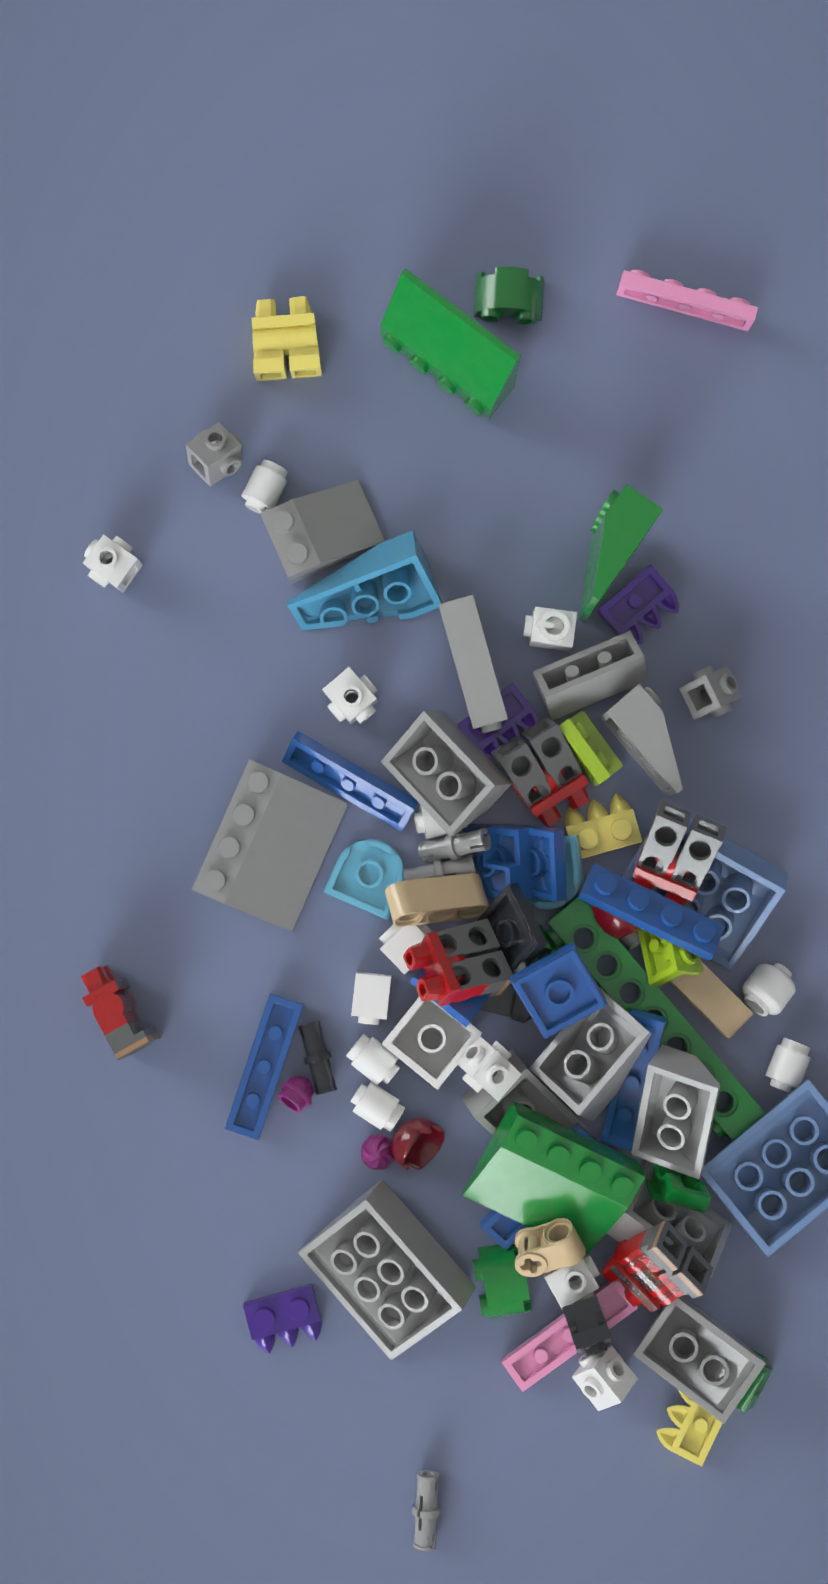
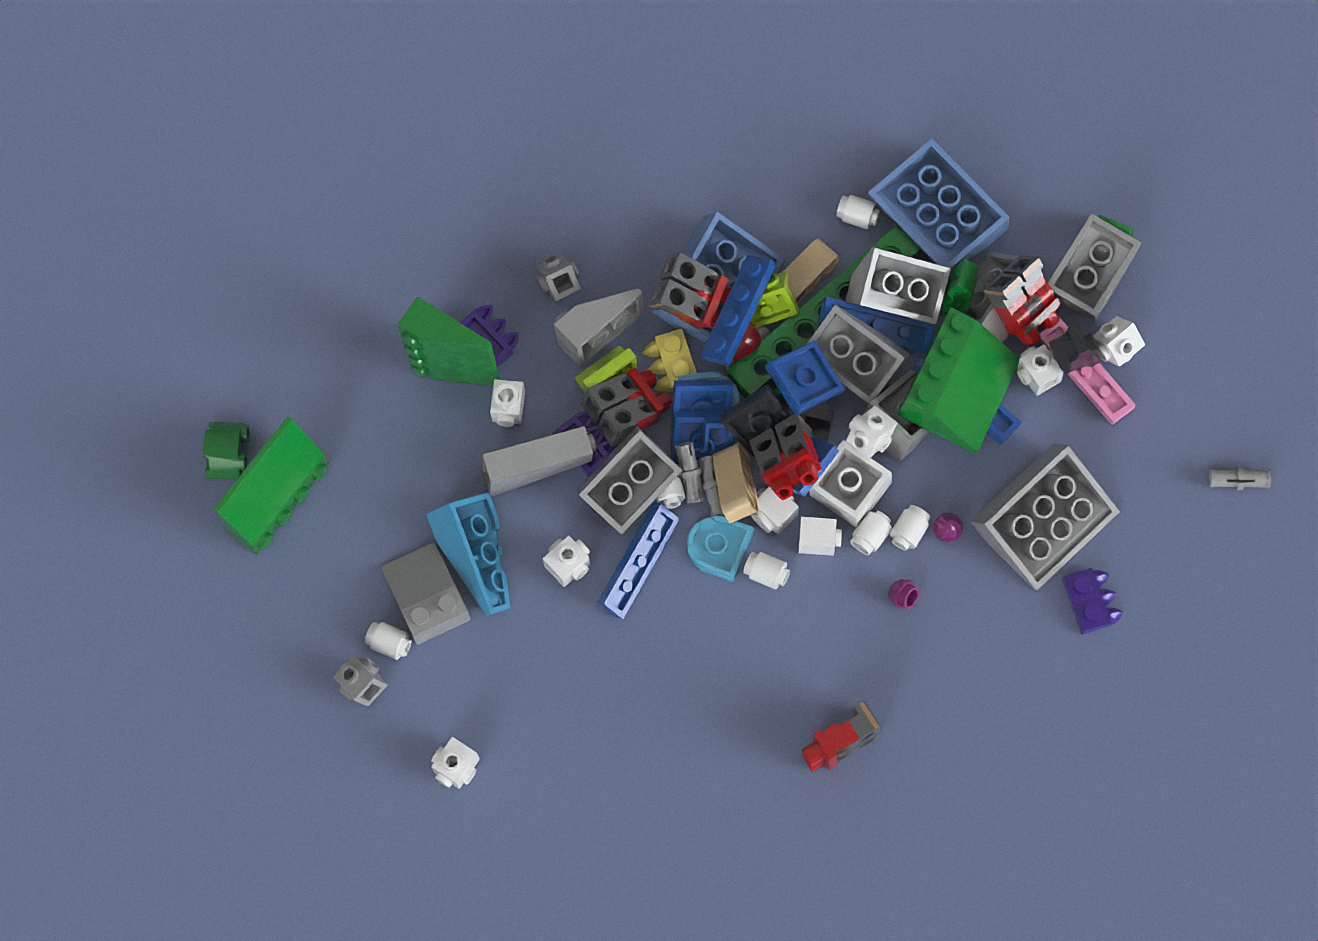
camera: 85 degrees left, 15 degrees down
(264, 1066) = (881, 621): blue plate -> none
(270, 846) = (694, 625): light grey slope -> none
(285, 336) = (265, 628): light yellow hips -> none
(317, 1057) = (872, 578): black pin -> none
(332, 932) = (766, 570): none -> white brick
(417, 1142) = (937, 494): dark red hair -> none
(504, 1287) = (1047, 423): green cylinder -> none
(551, 1245) = (1013, 382): tan piece -> none
(591, 675) = (546, 369): light grey brick -> none
(694, 1431) = (1152, 272): light yellow plate -> none
(698, 303) = (234, 298): bright pink plate -> none
(768, 989) = (797, 227): white head -> none

